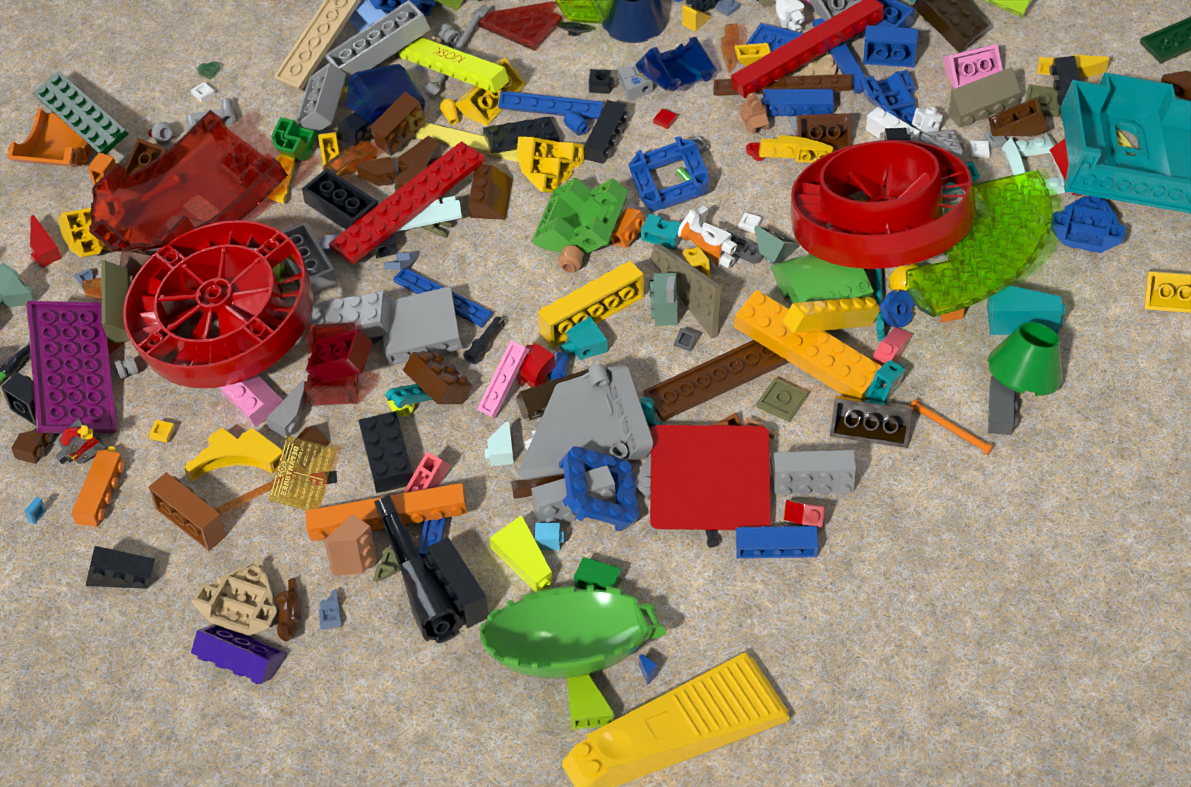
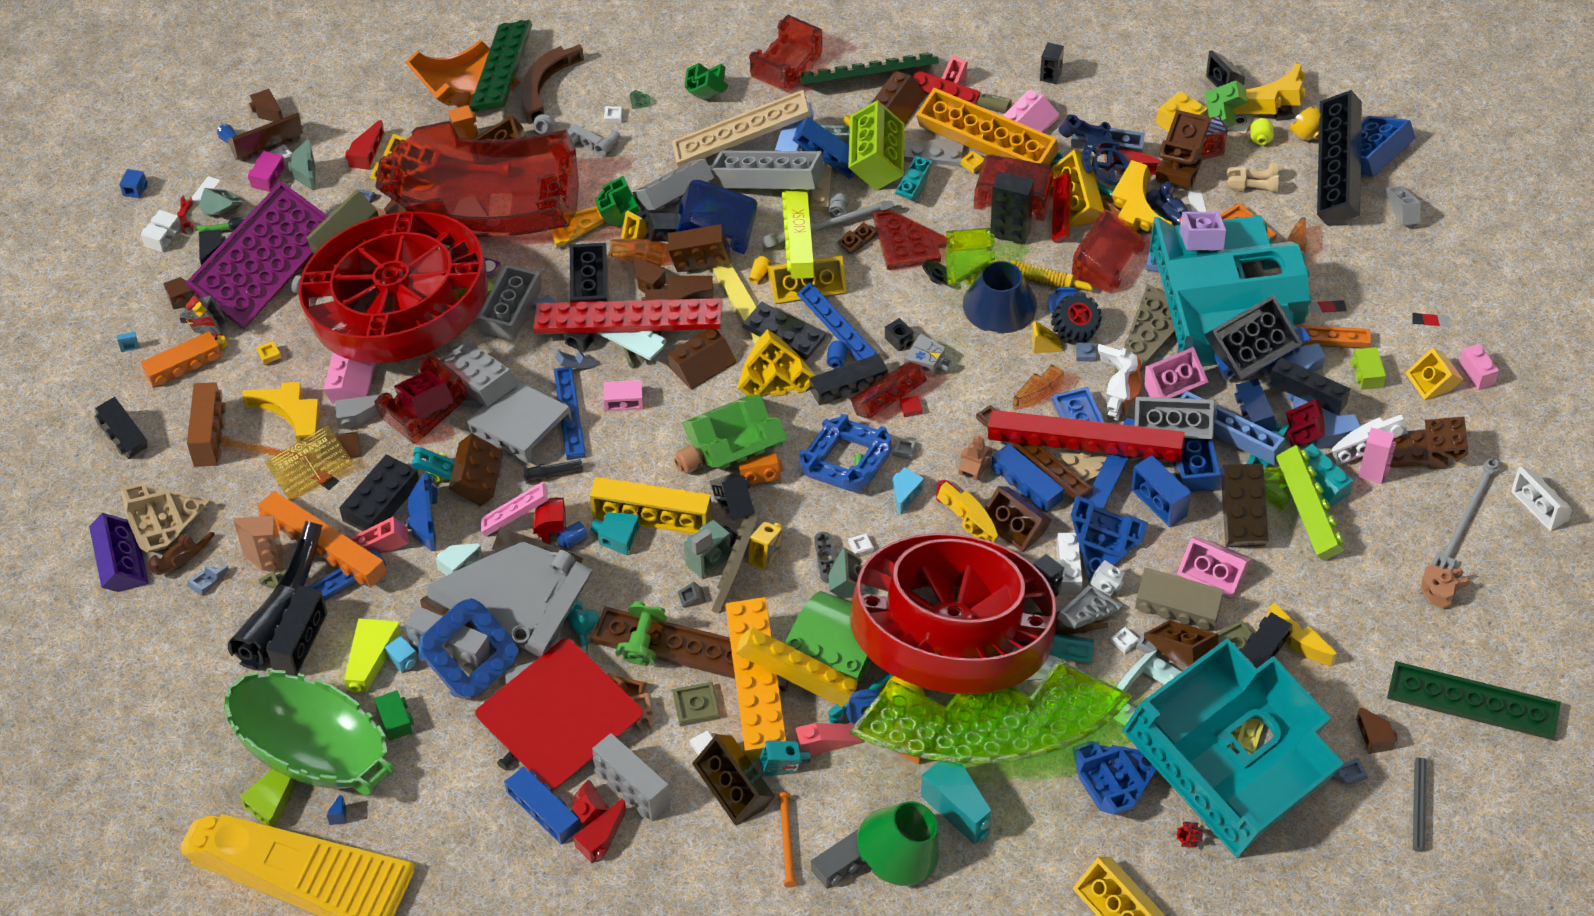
camera: 45 degrees right, 0 degrees up
(110, 87) = (541, 72): none -> reddish brown arch
(248, 22) = (705, 82): none -> green brick
(438, 431) = (420, 511): none -> blue wedge
(468, 256) = (623, 395): none -> bright pink brick
(487, 45) = (858, 238): none -> reddish brown slope
(640, 248) = (733, 493): none -> black wedge
(642, 117) = (888, 390): none -> clear red brick
(657, 226) = (782, 495): teal brick -> none
(677, 66) = (963, 369): clear blue windscreen -> none
(704, 390) = (637, 649): none -> bright green piece
(714, 247) = (795, 527): white hips -> none
(733, 167) = (906, 488): none -> medium azure slope
(751, 52) = (1038, 404): yellow slope -> none
(822, 418) = (700, 742): none -> white tile
(839, 526) = (598, 835): none -> red slope
(1169, 226) = (1189, 834): none -> red gear

